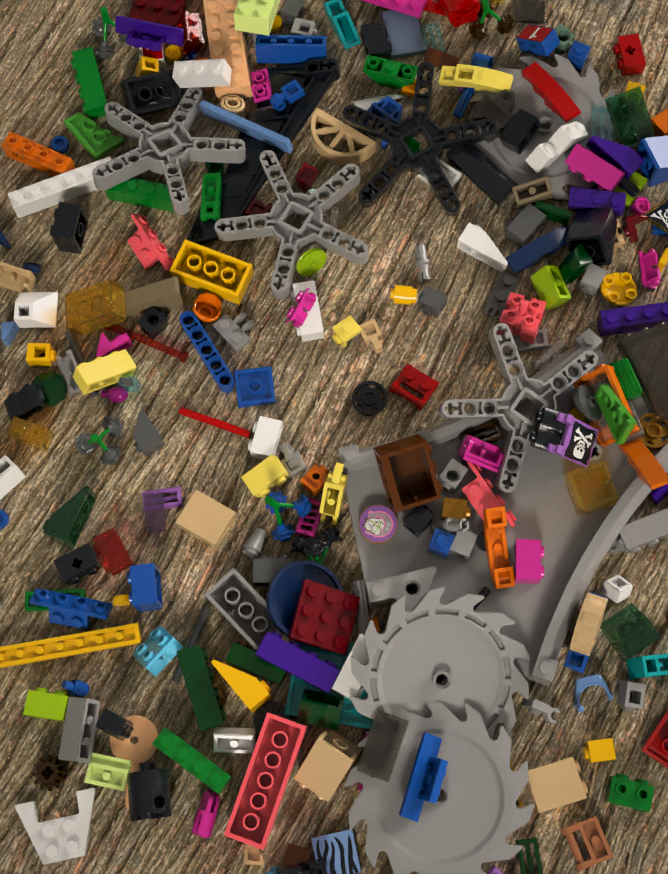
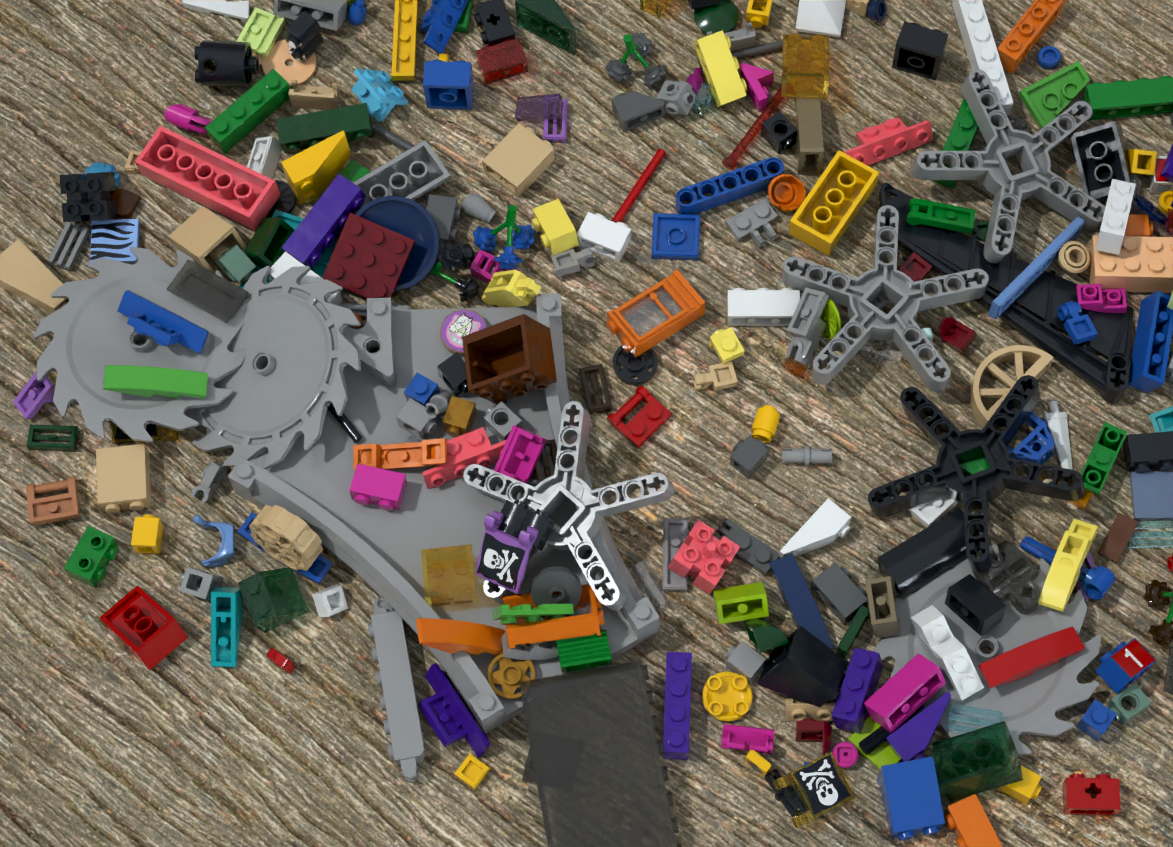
camera: 100 degrees right, 5 degrees down
(132, 402) = (677, 97): none -> light grey brick
(166, 707) = (314, 96): none -> tan hinge
(296, 313) = (769, 295): dark pink hinge -> none
(312, 485) = (540, 274): orange brick -> none
(326, 274) = (806, 331): none -> light grey plate
(328, 386) = (655, 314): none -> orange door
(348, 731) = (236, 264): none -> sand green brick
(379, 423) = (599, 407): none -> dark brown tile
(479, 768) = (155, 380): none -> bright green slope

